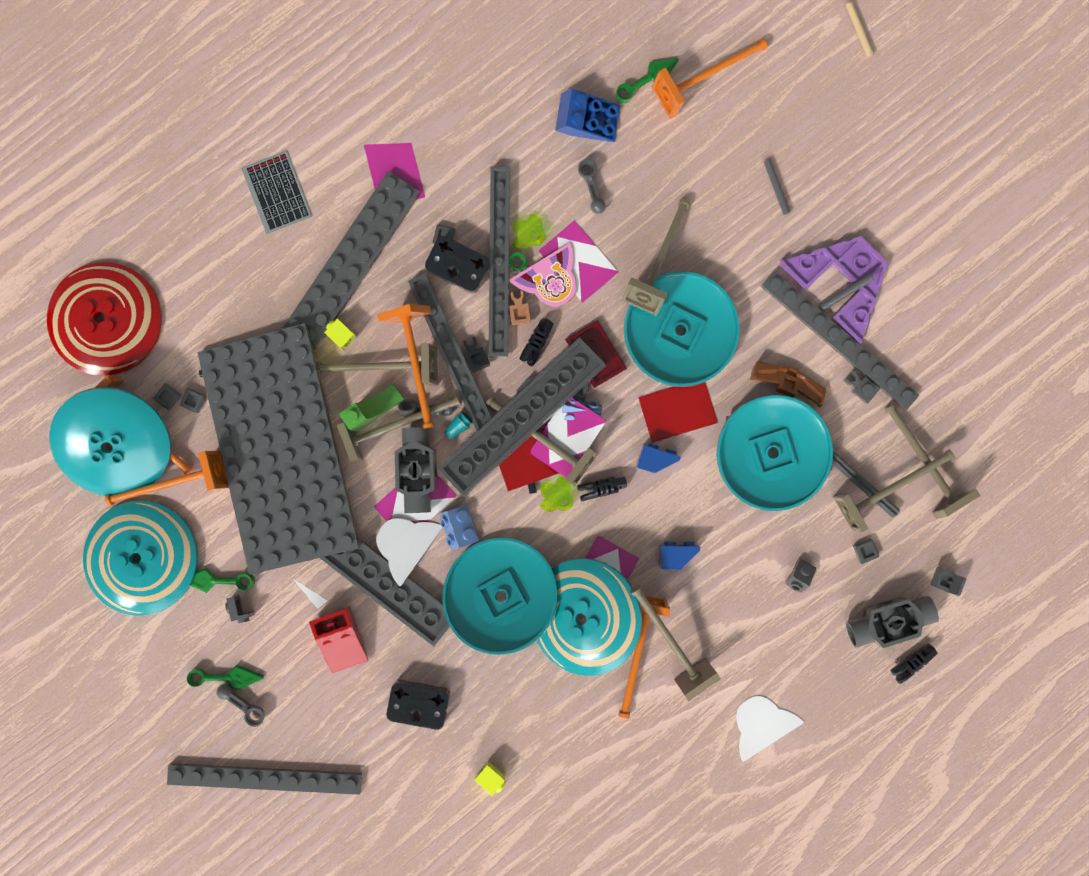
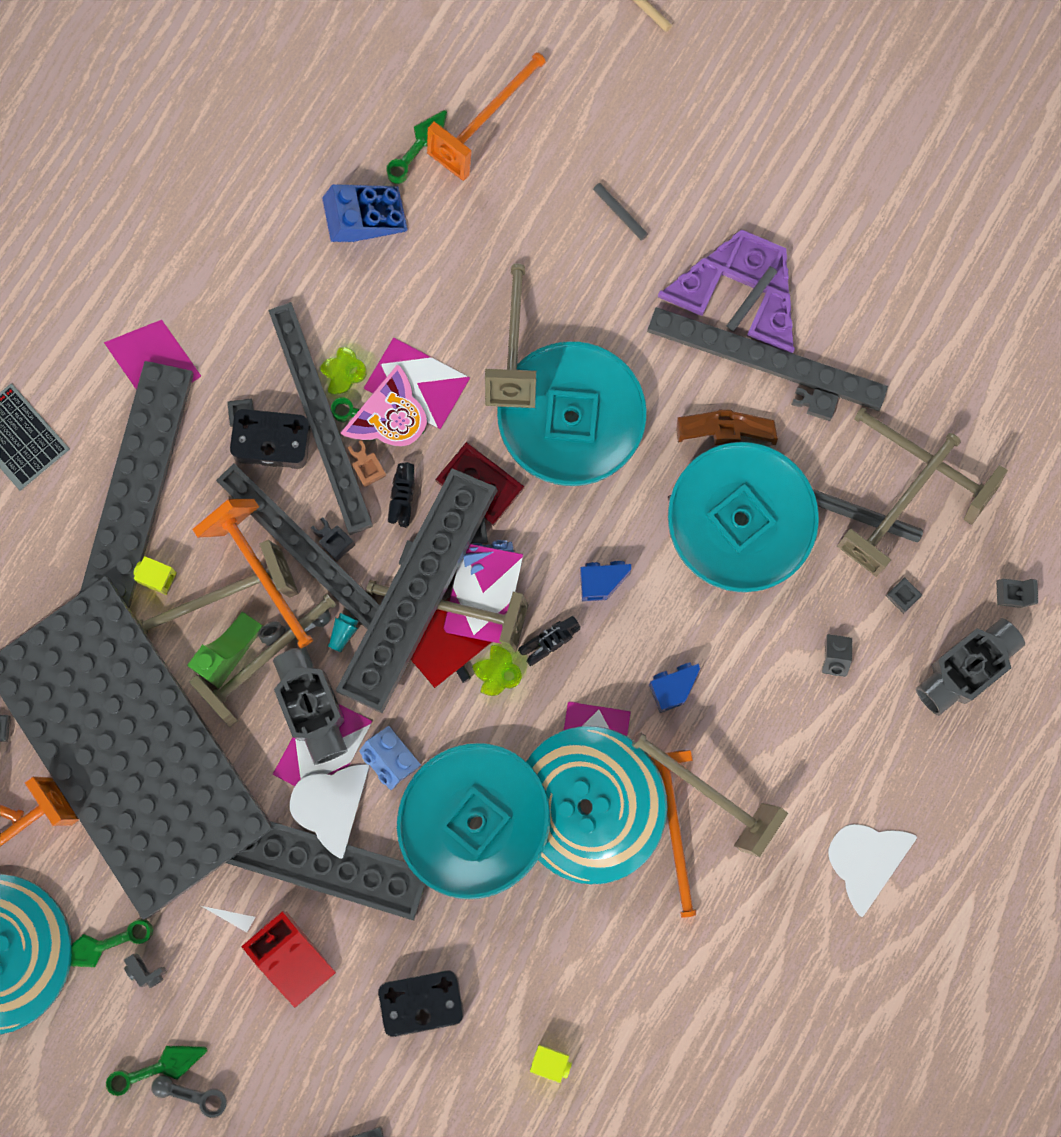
camera: 25 degrees left, 10 degrees down
(597, 204) = (414, 308): dark grey piece -> none
(677, 411) = (606, 514): red sticker -> none
(913, 663) = (1019, 708): black hinge -> none

